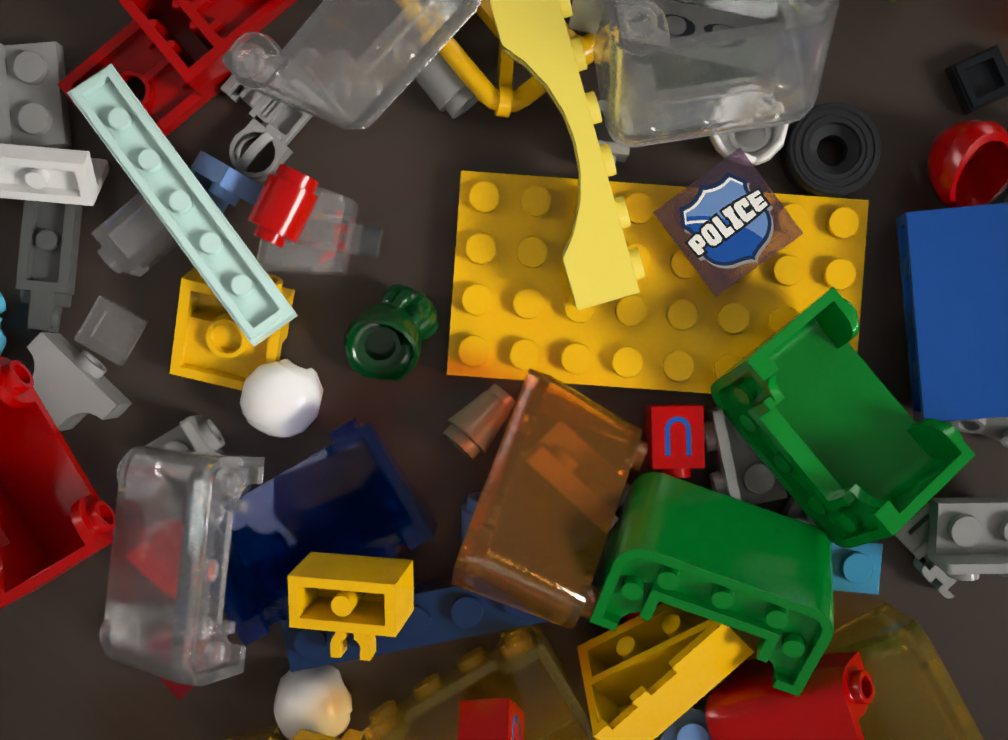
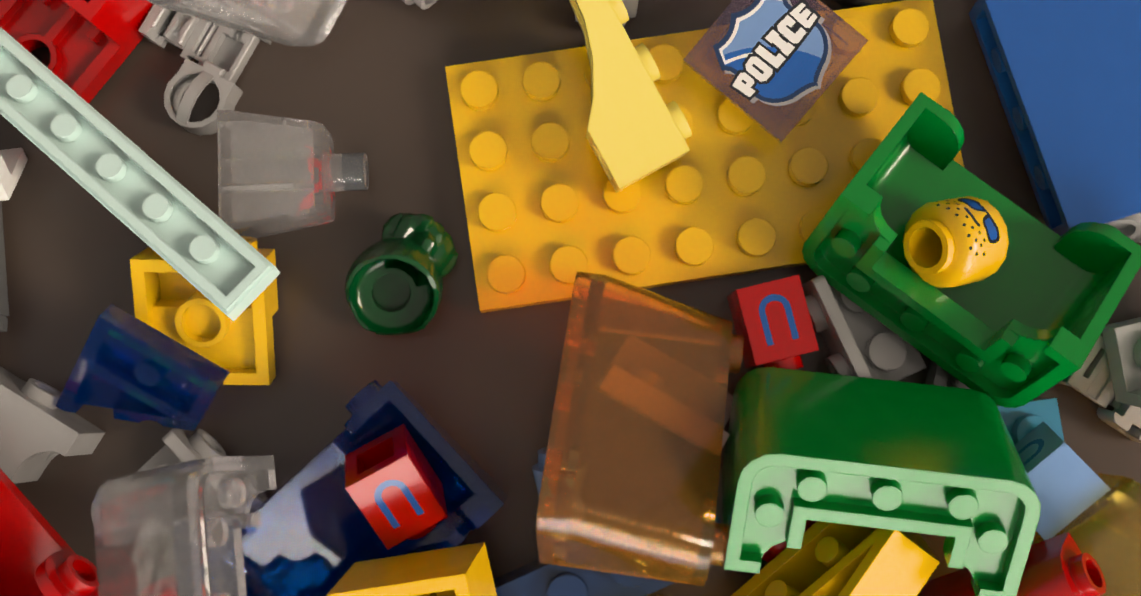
camera: 15 degrees left, 5 degrees down
(111, 330) = (54, 345): clear tile -> none
(133, 238) = (68, 229): clear brick -> none
(173, 370) = (141, 374): none -> clear blue wing
(223, 182) = (167, 137): medium blue bracket -> none
(281, 398) = (283, 382): white hair -> none
(284, 206) = (236, 143): red brick -> none
(353, 501) = (395, 487): none -> red brick
(479, 422) = (531, 359): dark tan cone -> none
(829, 411) = (955, 241): none -> yellow head
(860, 608) = (1059, 478): none -> medium blue brick

